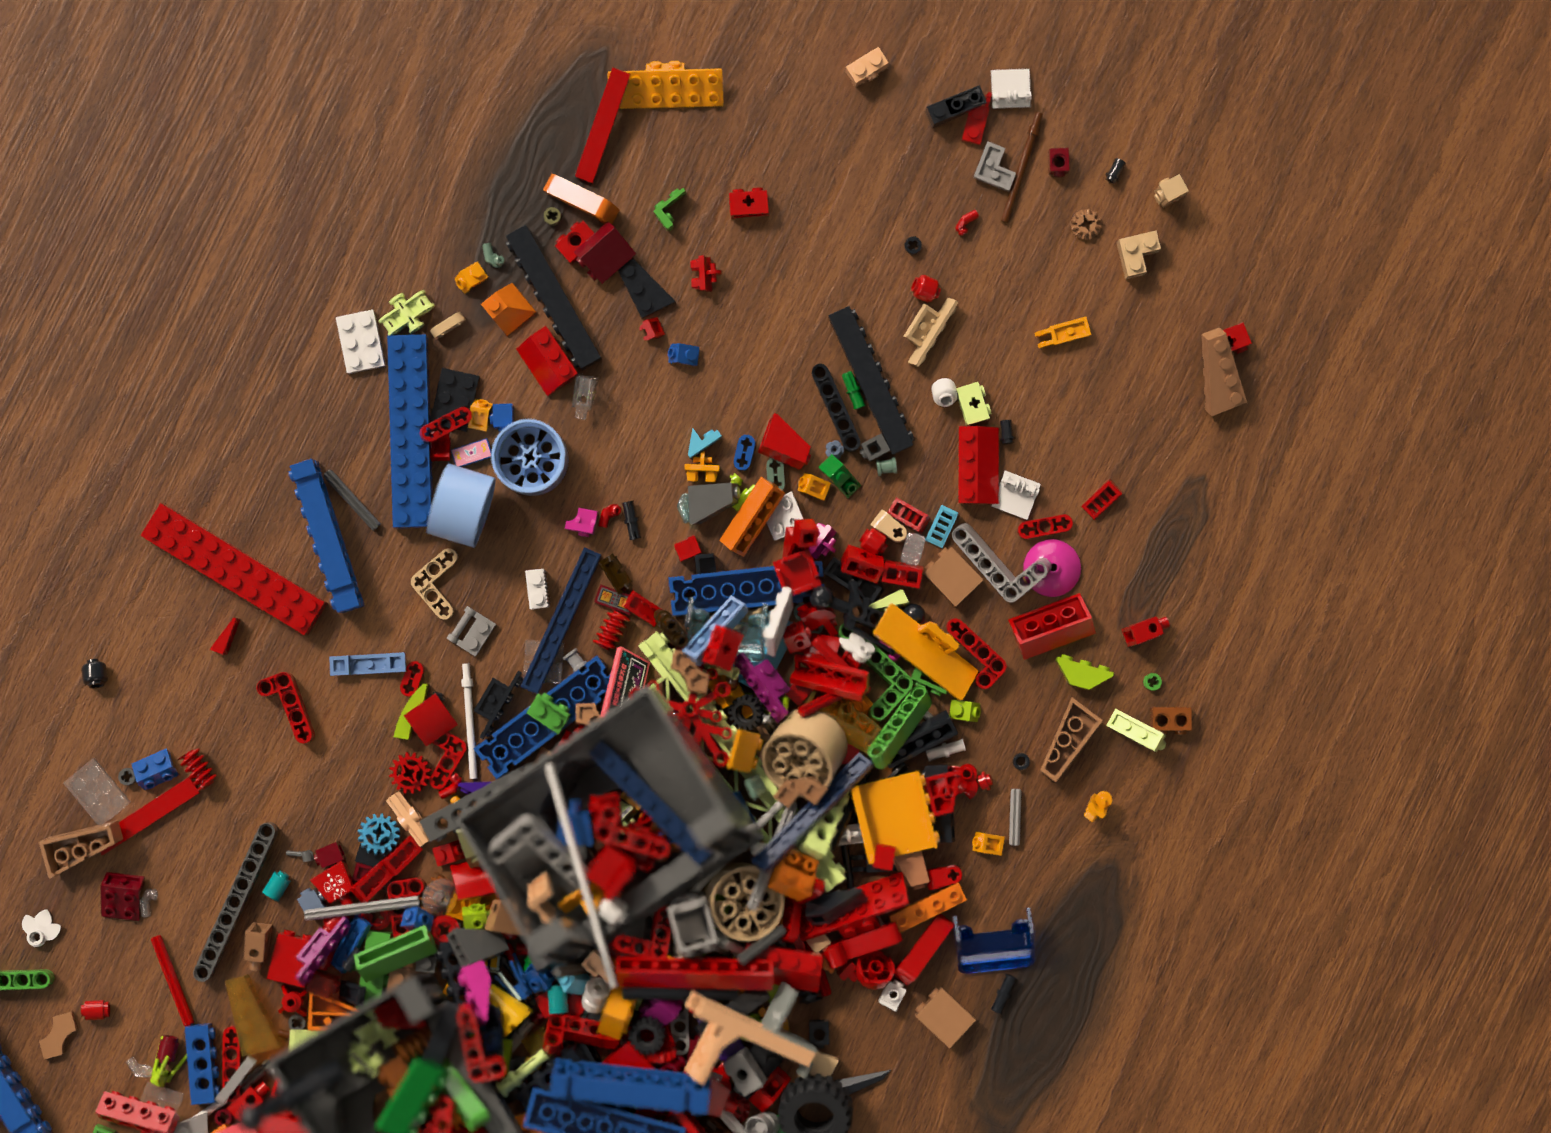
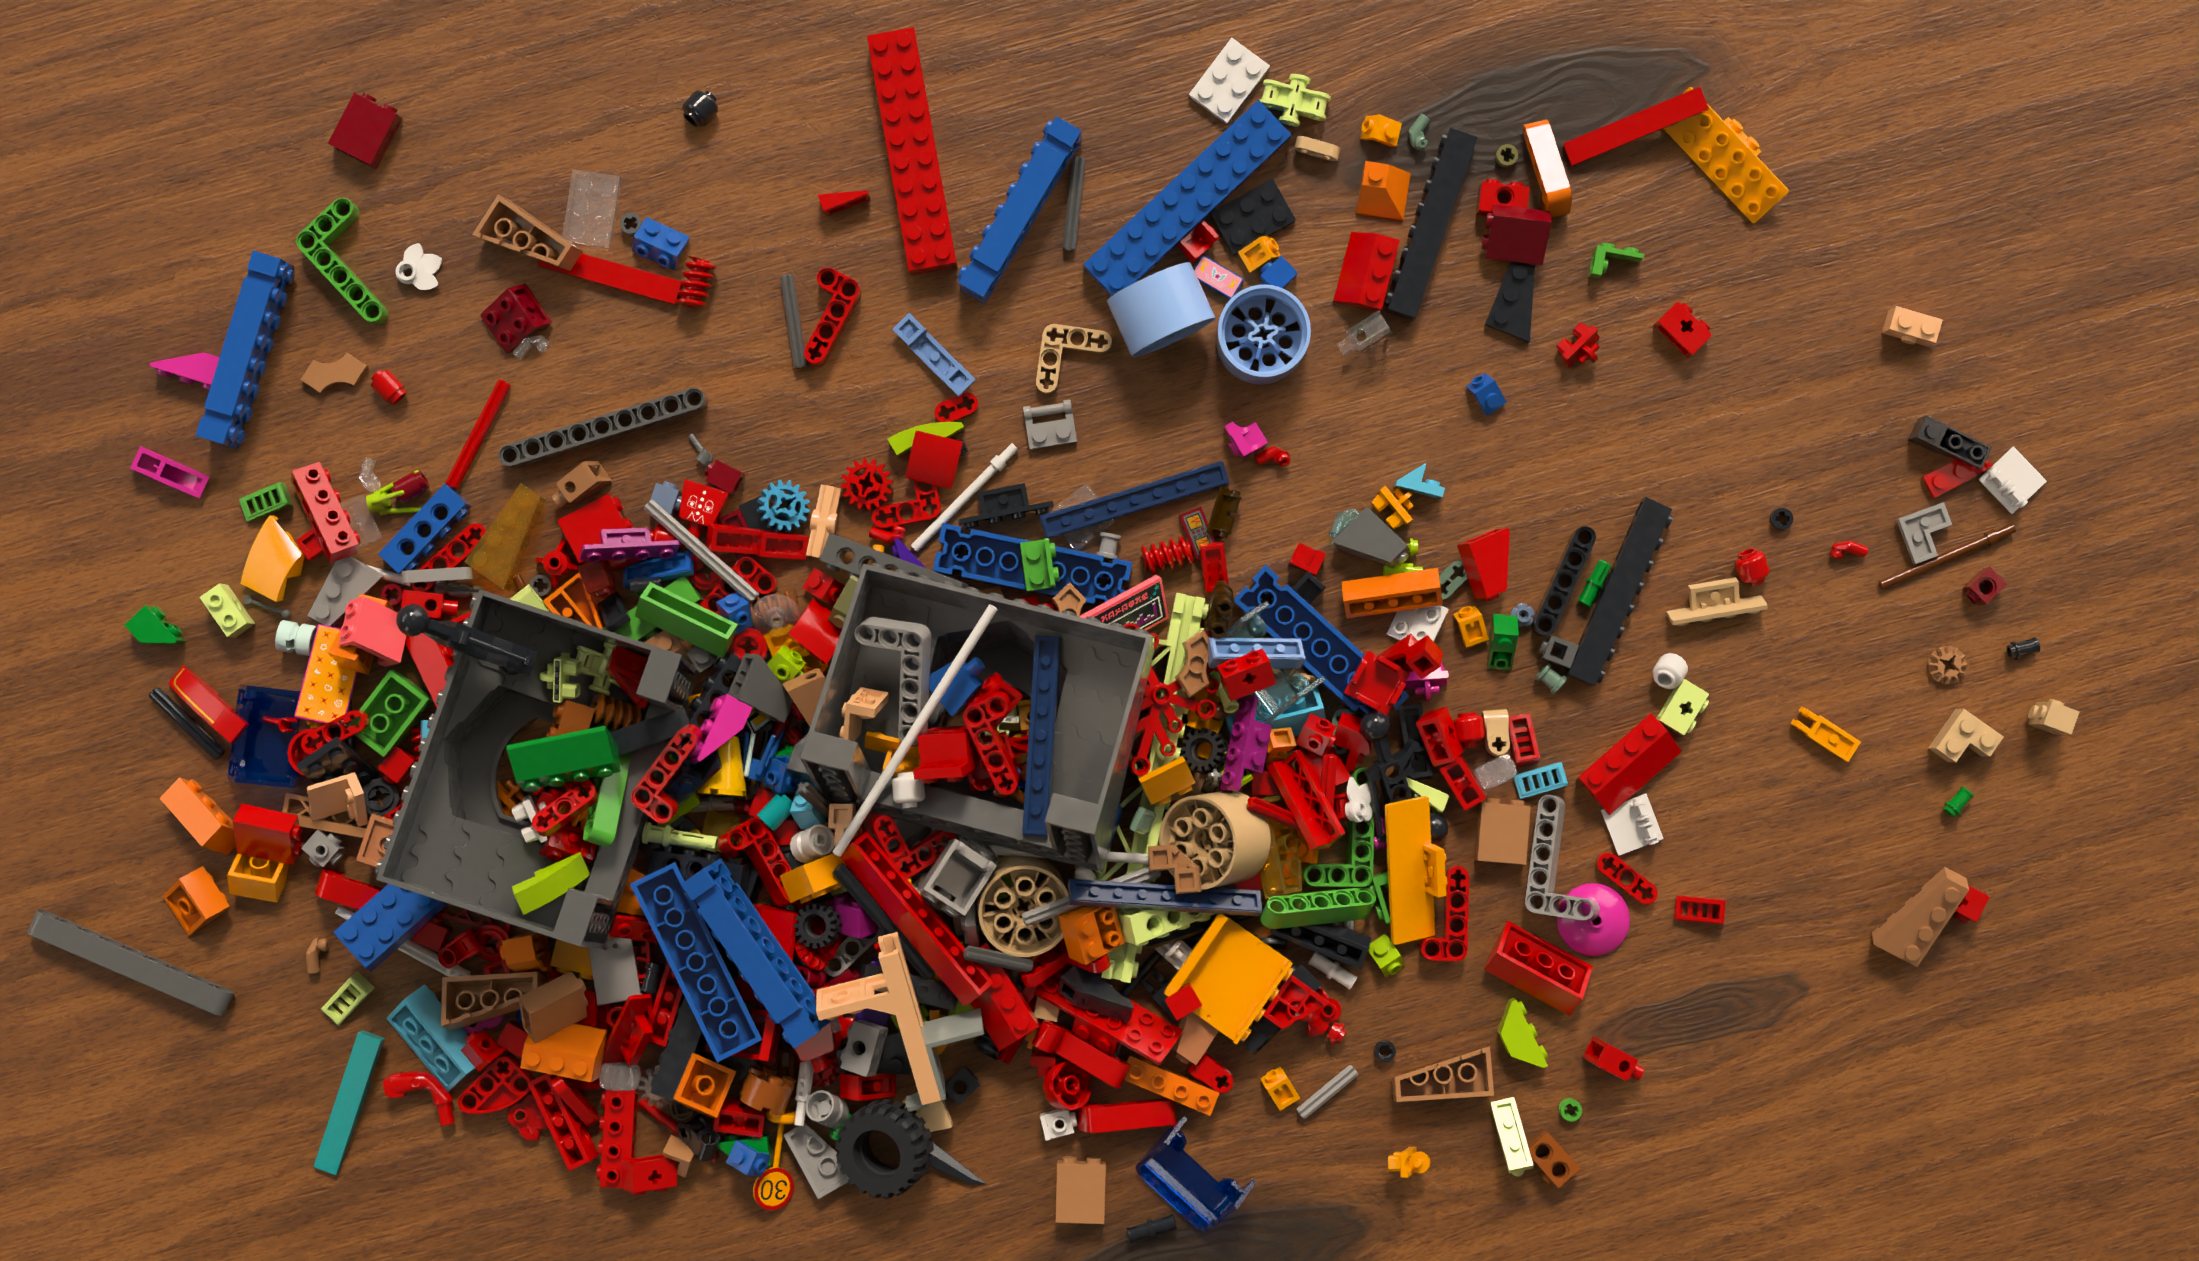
camera: 50 degrees right, 0 degrees up
(272, 730) = (793, 321): none -> dark grey axle
(277, 885) = (652, 453): teal brick -> none
(436, 435) = (1227, 237): red beam -> none
(537, 589) = (1144, 451): white brick -> none
(631, 520) = (1287, 482): black pin -> none
(653, 328) = (1485, 343): red tile -> none
(739, 451) = (1447, 537): blue beam -> none
(779, 620) = (1319, 704): white plate -> none
(783, 664) = (1280, 743): none -> orange leg
(1007, 432) = (1684, 763): black pin -> none
(1172, 290) = (1958, 801): none -> green pin

